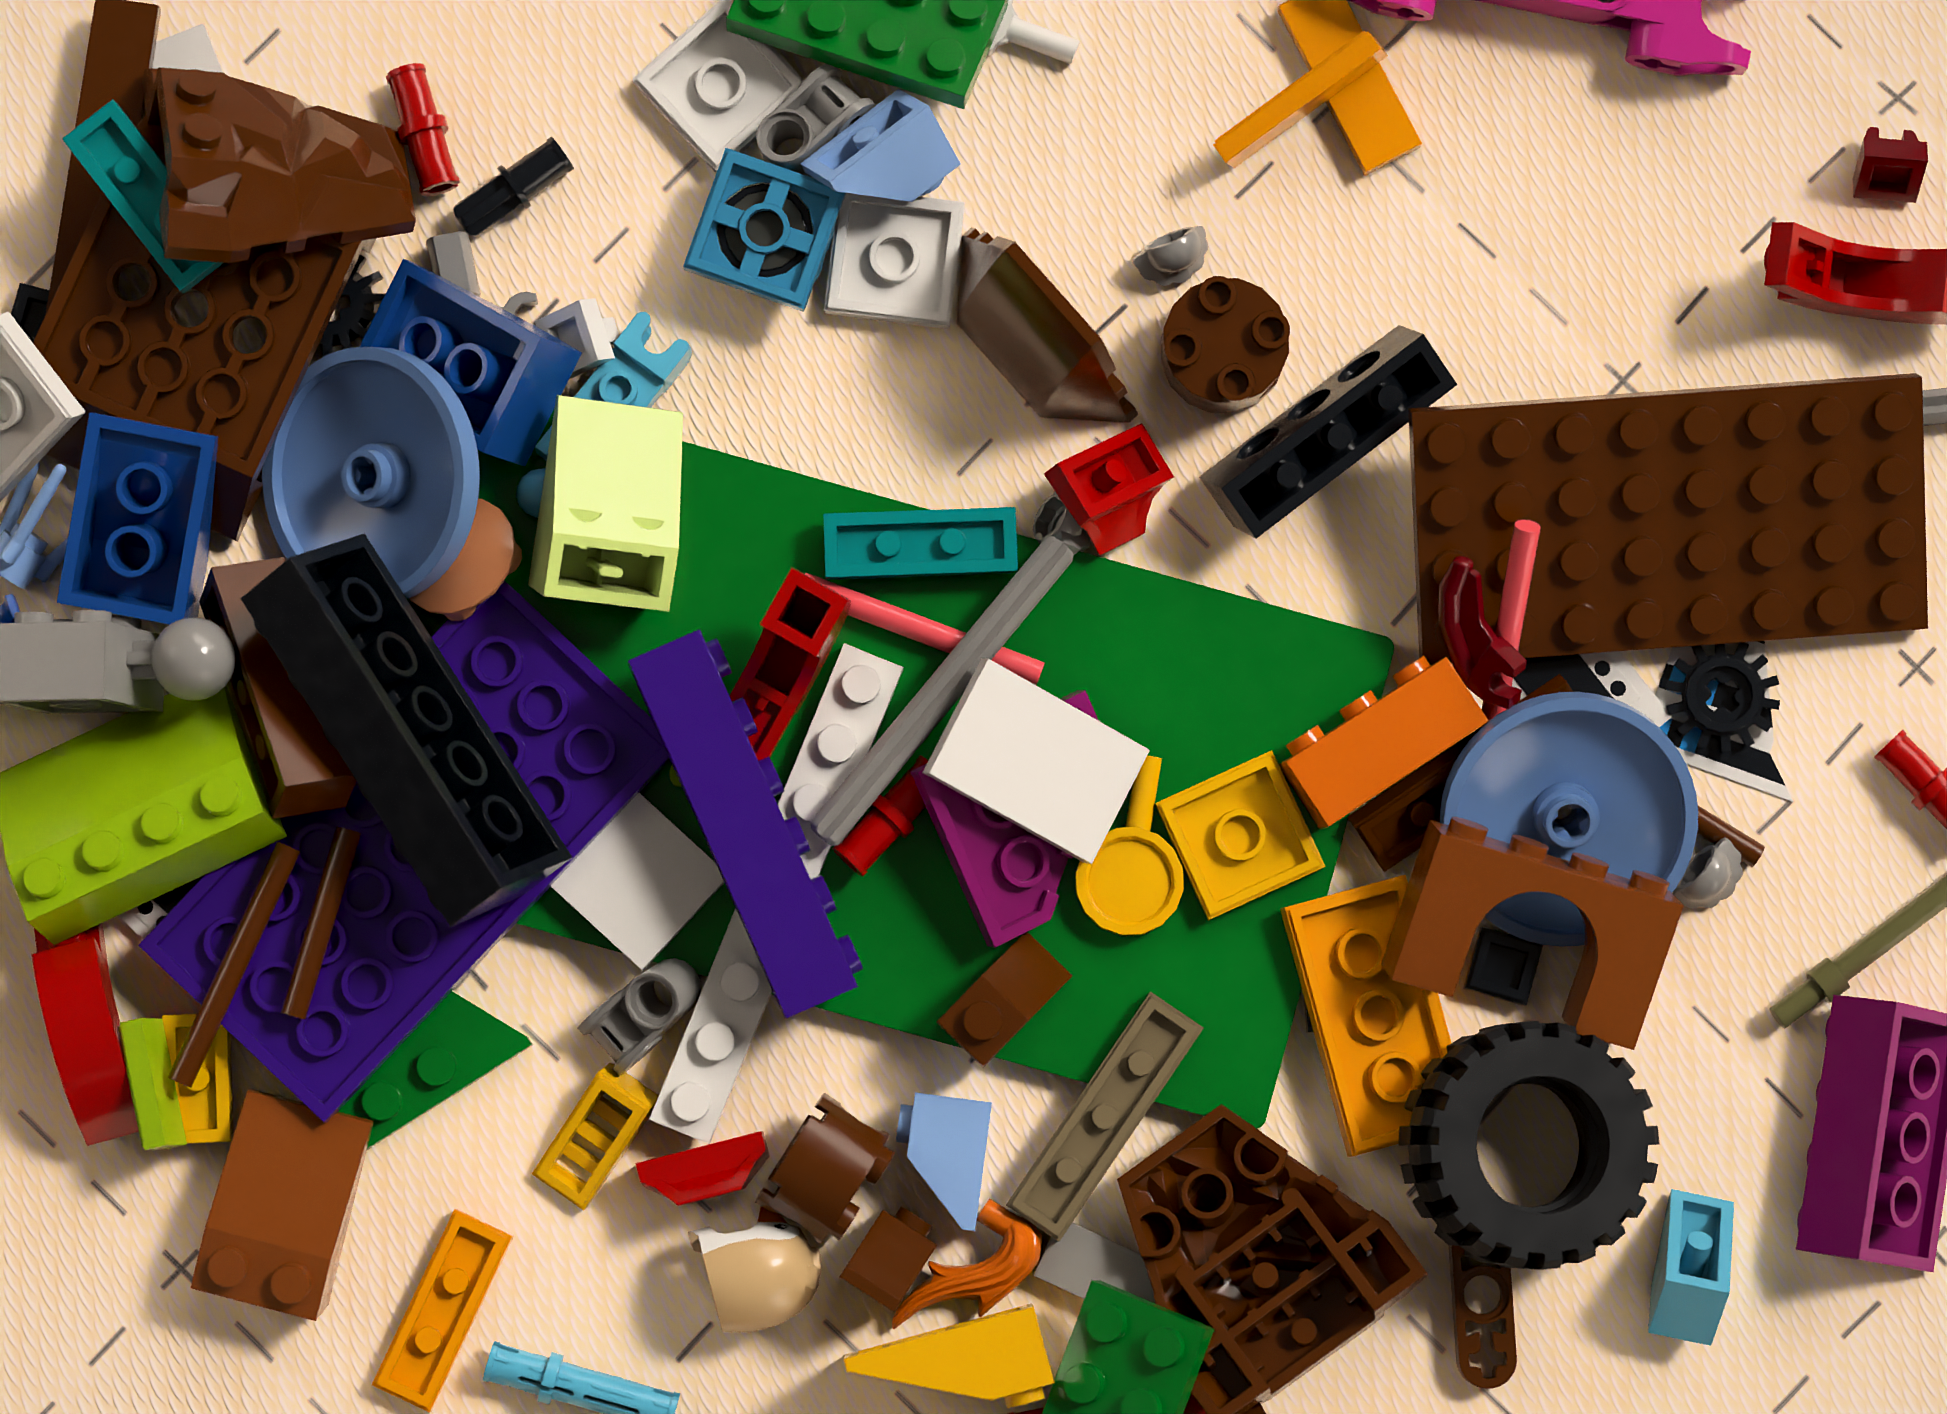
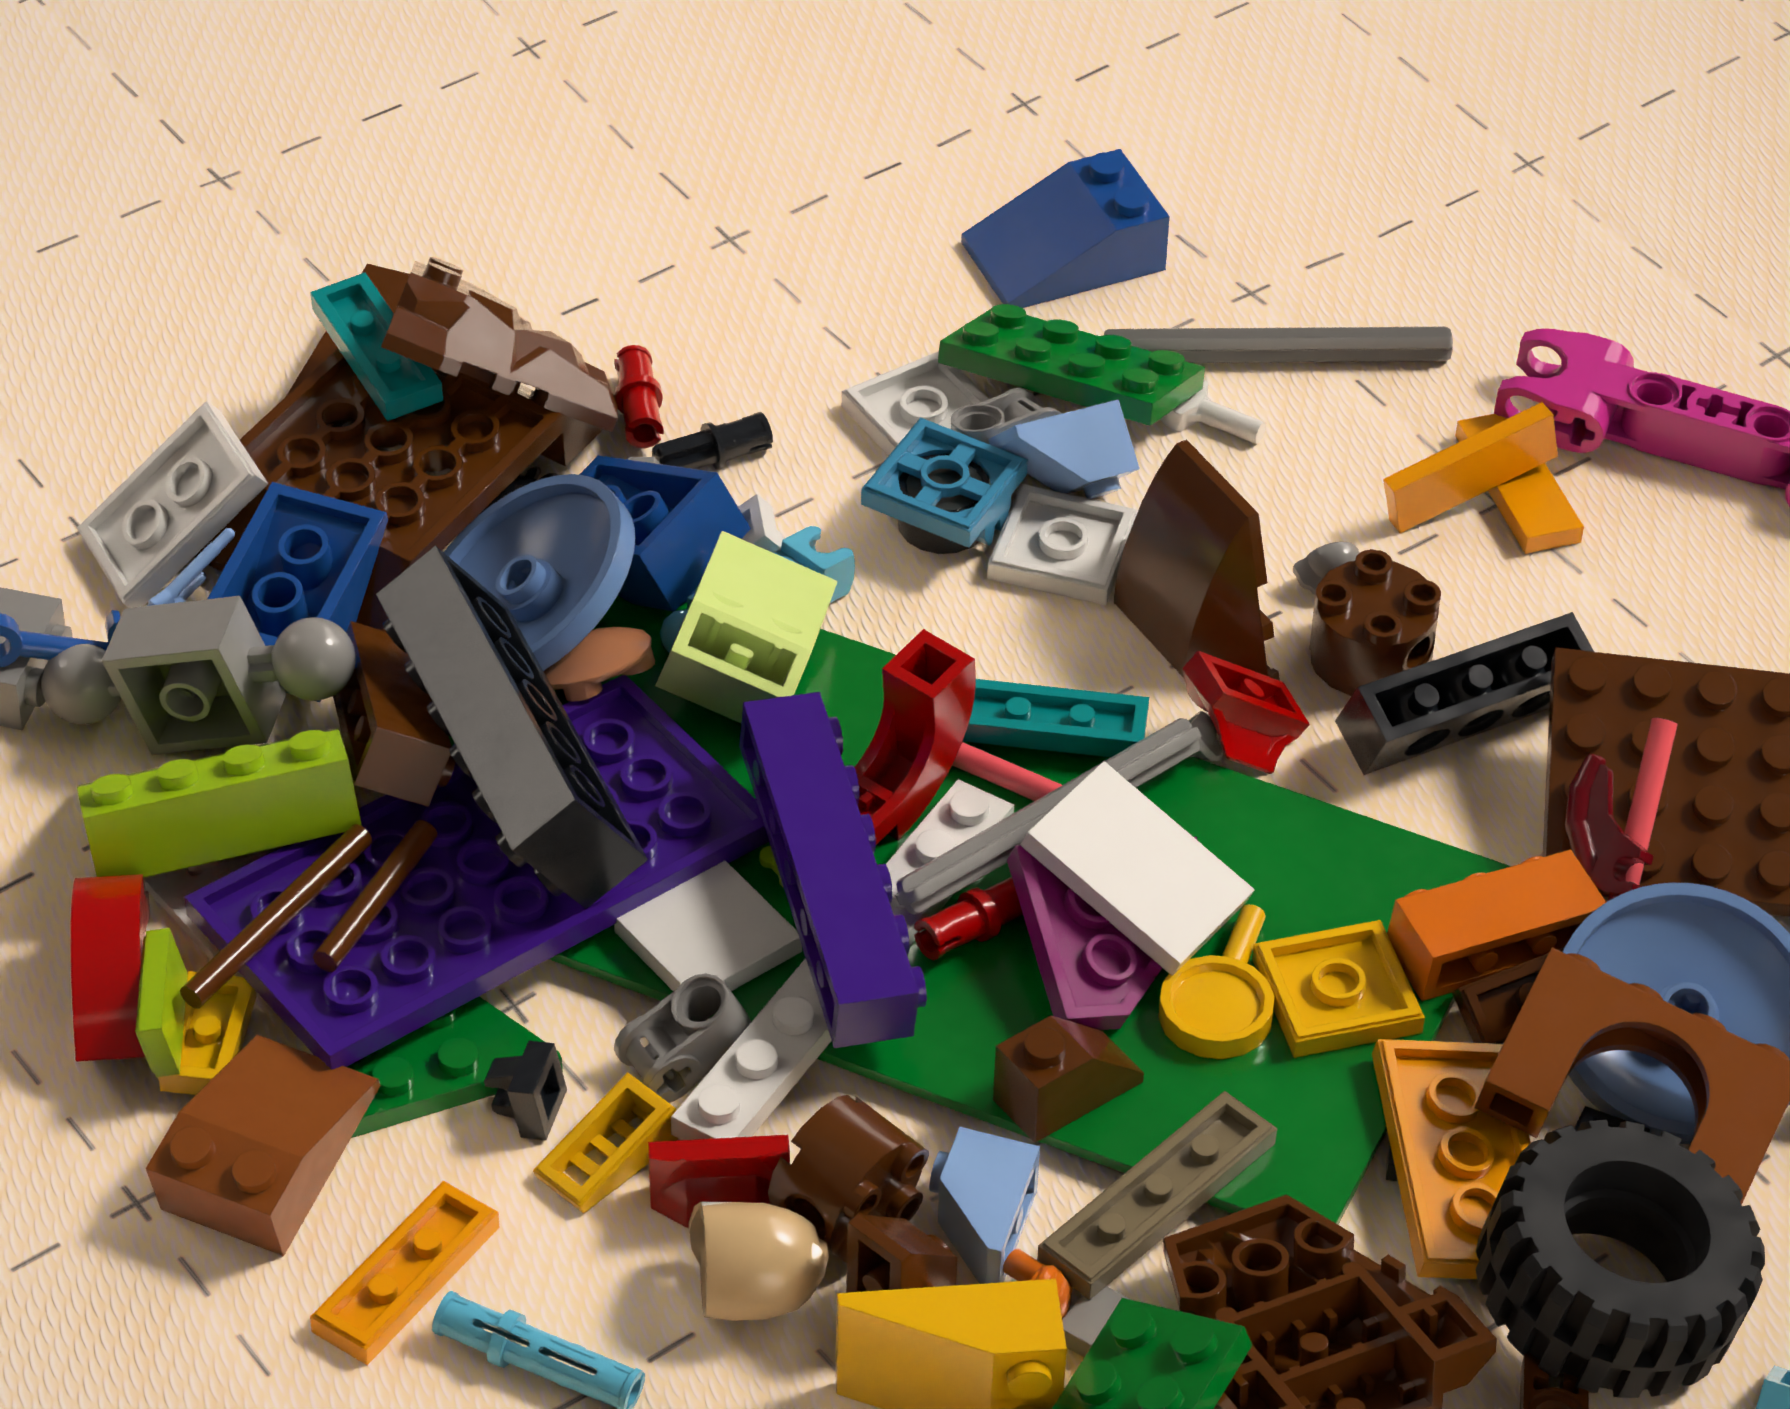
camera: 10 degrees right, 40 degrees down
(513, 1095) = (529, 1088): none -> black tile

